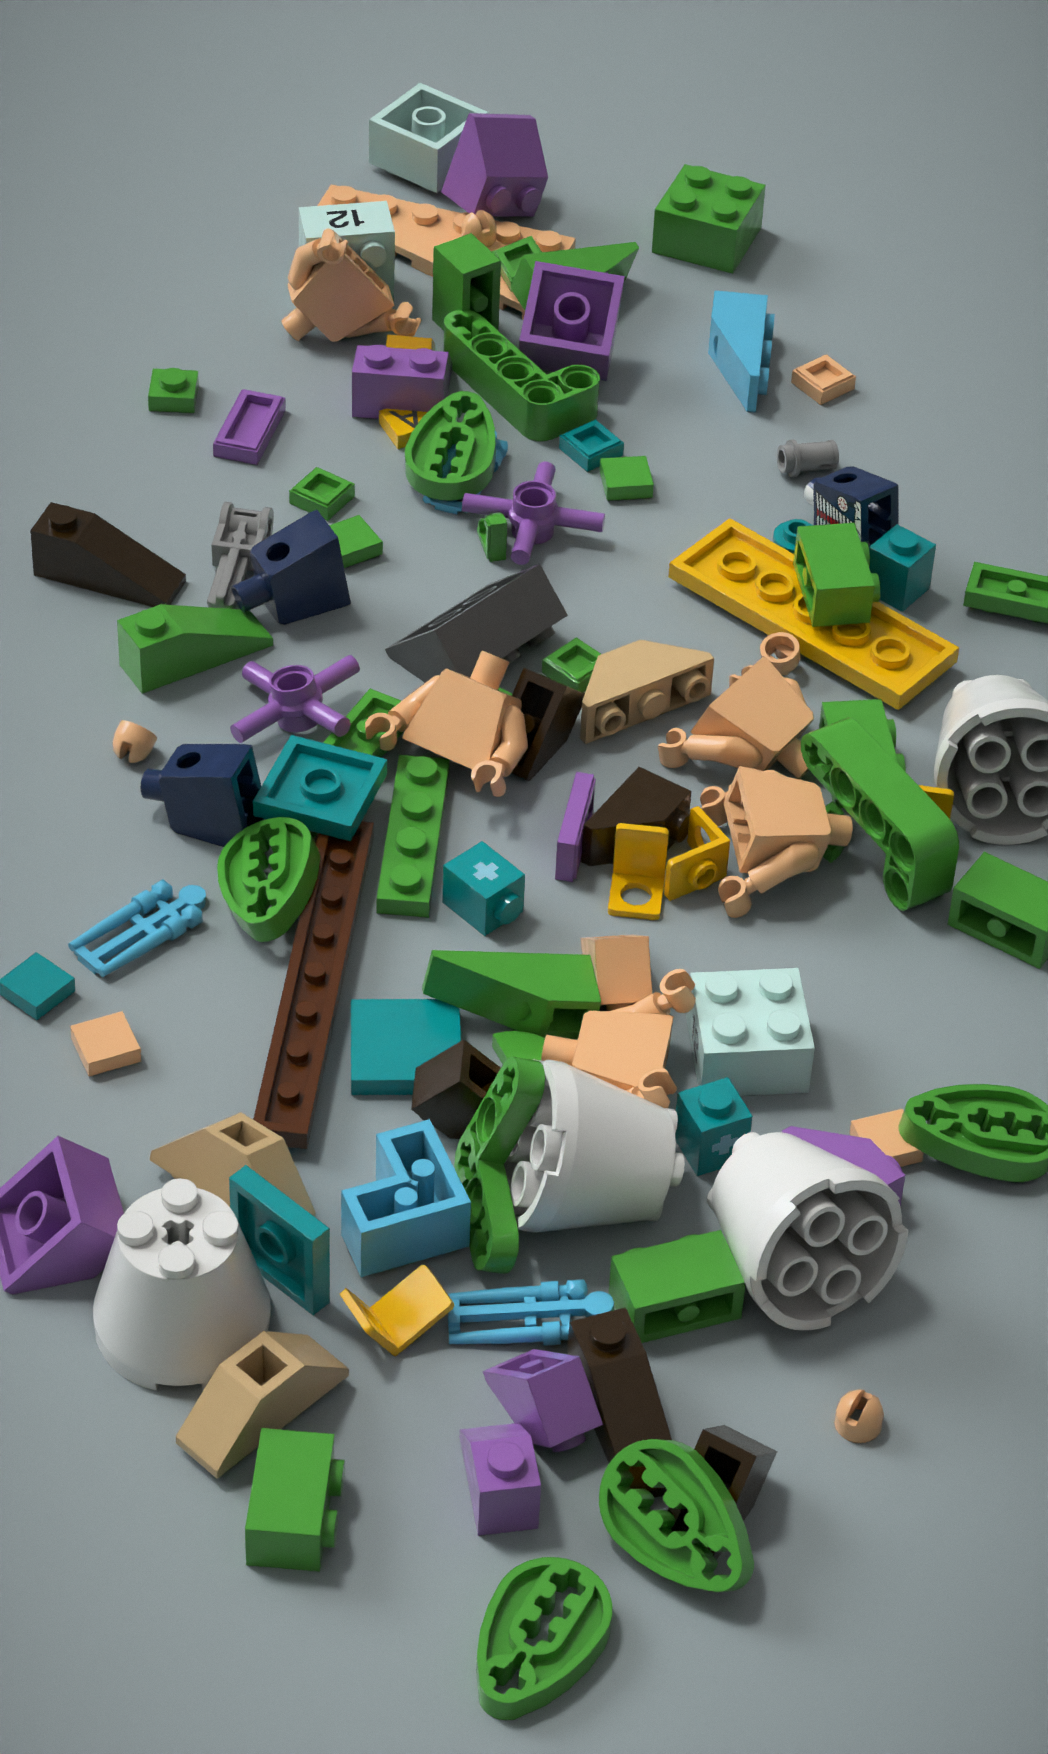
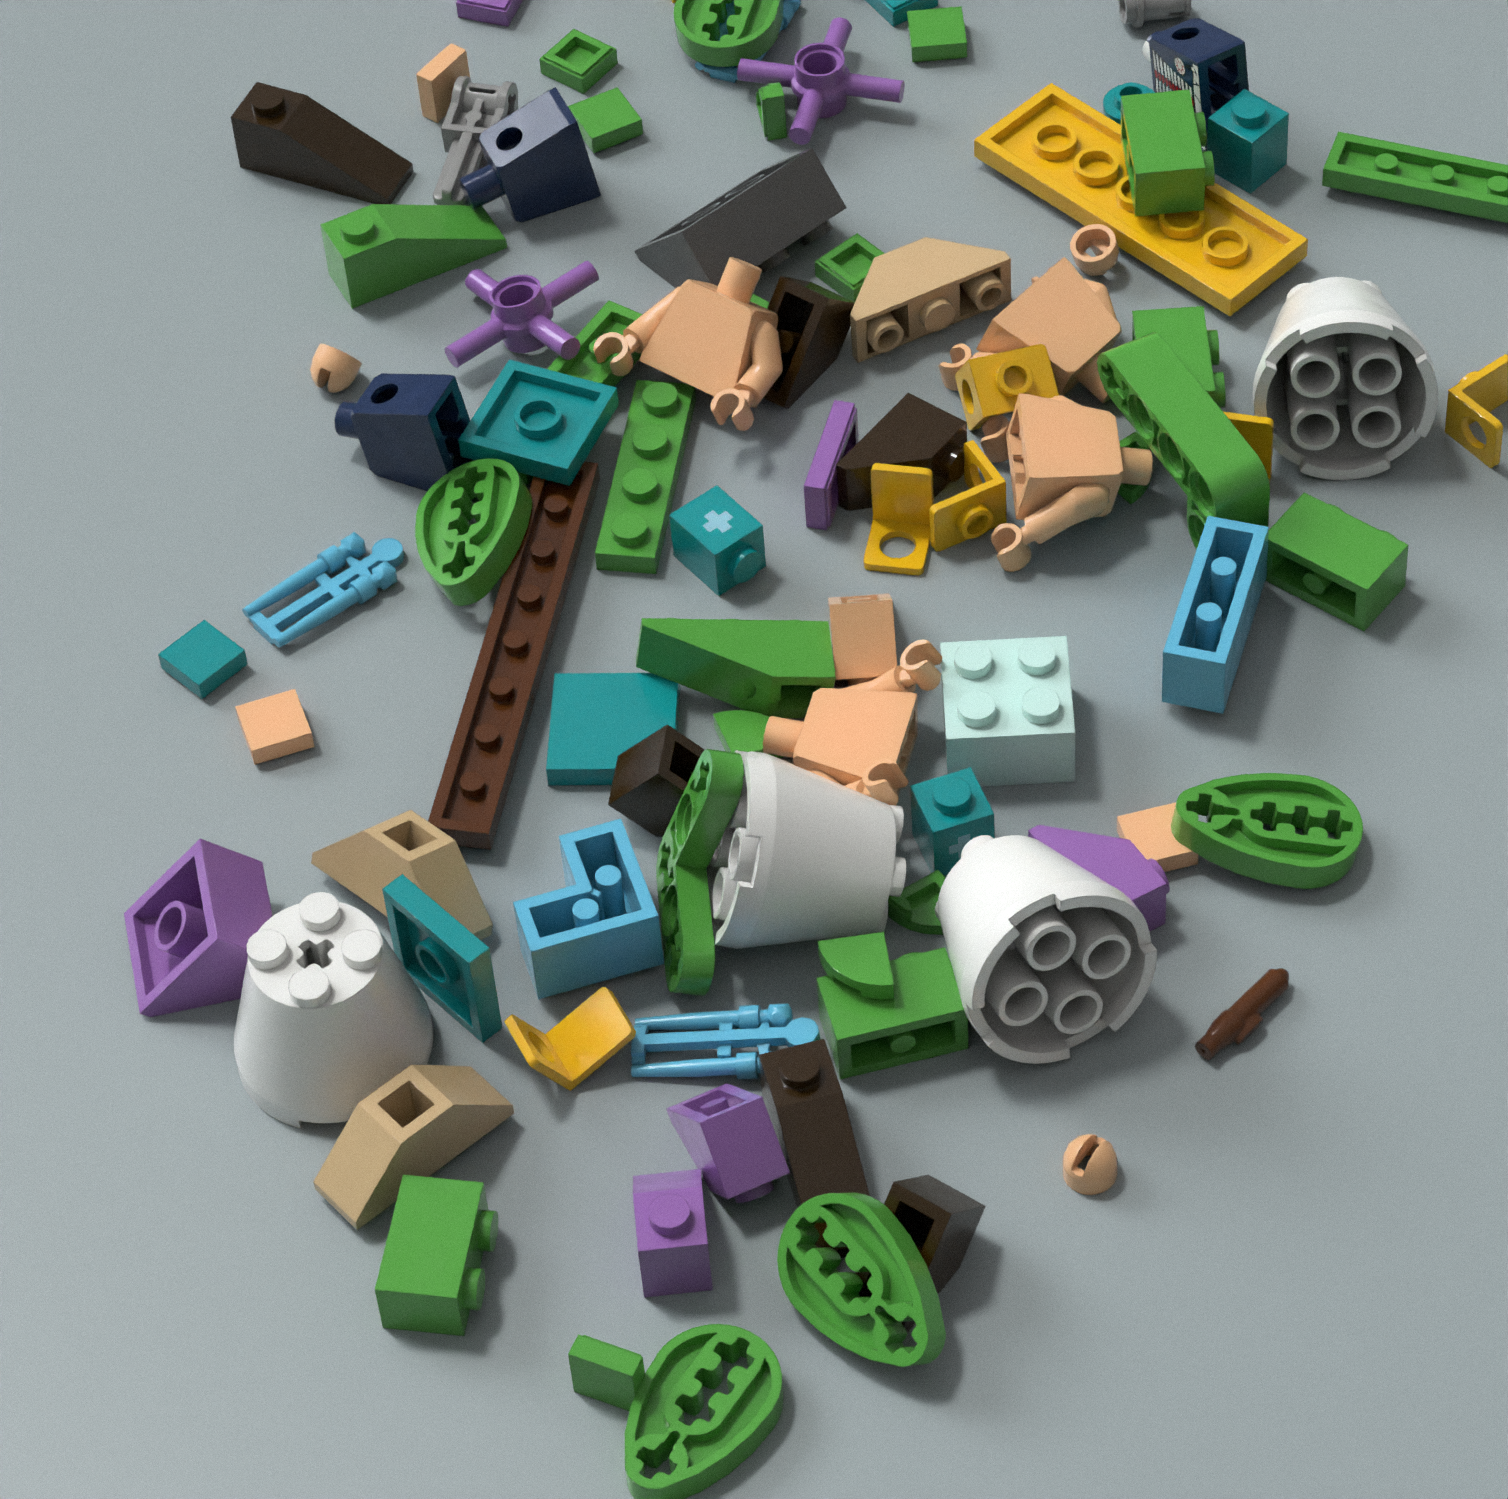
camera: 10 degrees right, 5 degrees up
(205, 507) = (438, 79): none -> light nougat tile
(455, 1600) = (605, 1371): none -> bright green tile
(650, 1242) = (859, 963): none -> bright green tile
(690, 1197) = (917, 904): none -> bright green tile
(717, 759) = (1000, 378): none -> yellow bracket
(919, 952) = (1215, 614): none -> medium azure brick
(977, 1288) = (1244, 1015): none -> reddish brown piece

